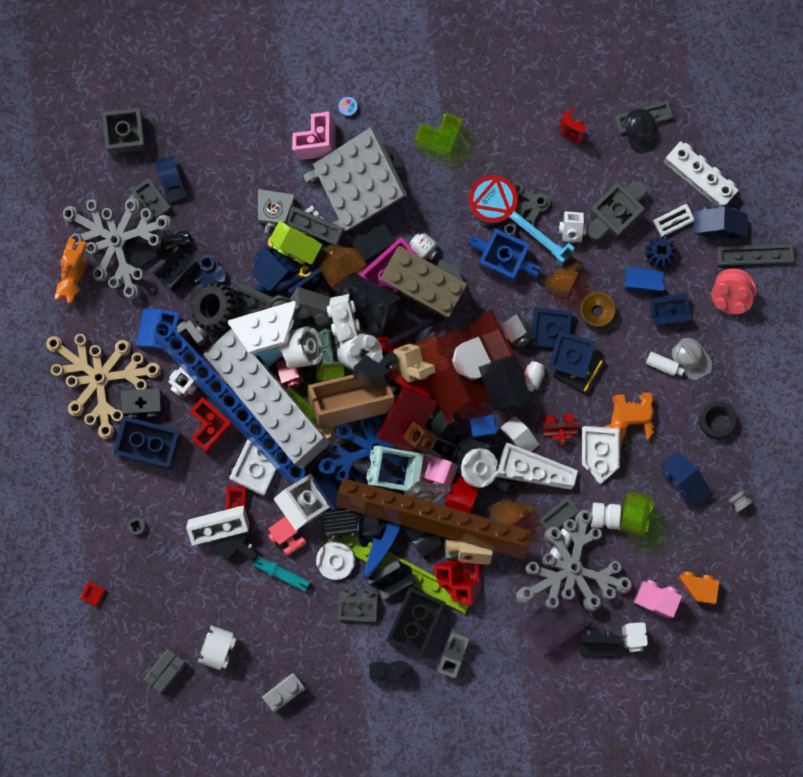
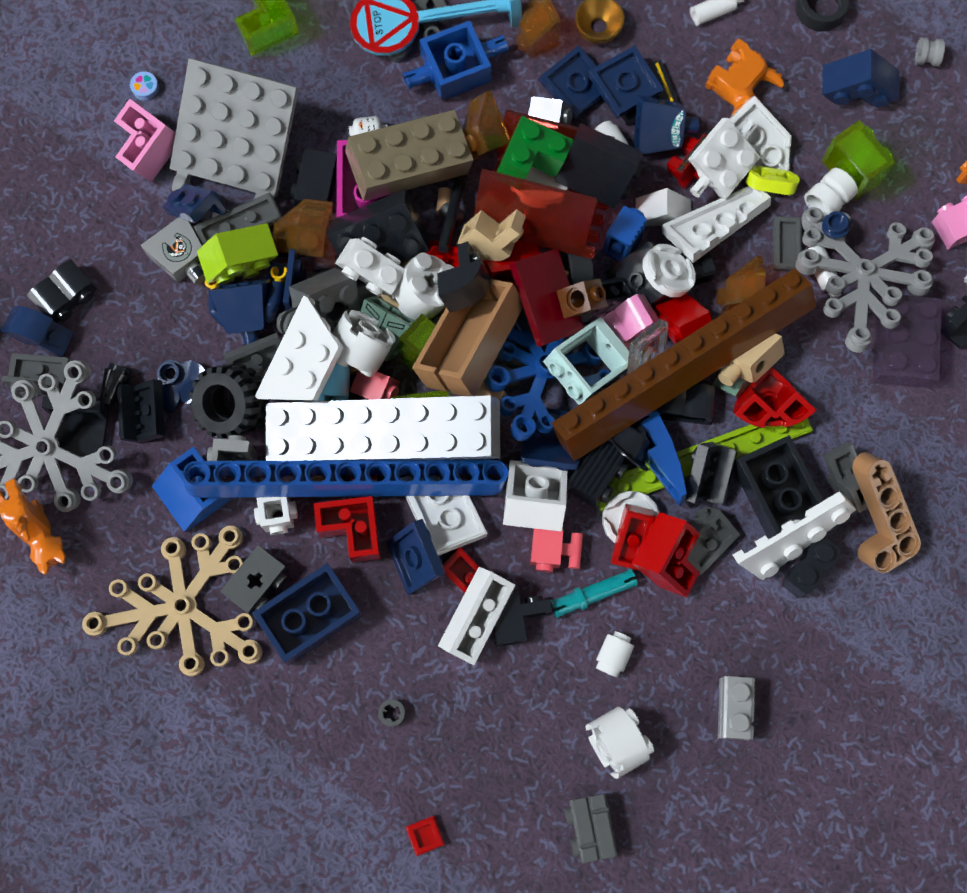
camera: 50 degrees left, 5 degrees down
(201, 172) = (62, 291): none -> black brick
(220, 470) = (415, 557): none -> dark blue plate
(259, 610) = (614, 654): none -> white brick
(303, 194) = (193, 202): none -> dark blue bracket
(326, 568) = (631, 534): none -> red slope
(328, 591) = (666, 553): none -> red brick
(373, 644) = (795, 537): none -> white wing
(419, 319) = (442, 205): none -> arm
(440, 697) = (897, 534): none -> medium nougat beam
(473, 306) = (484, 127): none -> clear orange slope
(482, 340) = (536, 148): none -> green brick
(563, 394) = (661, 125): none -> dark blue torso
(571, 443) = (724, 158): none -> white plate
(586, 478) = (772, 180): none -> neon yellow beam
(586, 533) = (836, 225): none -> dark blue plate

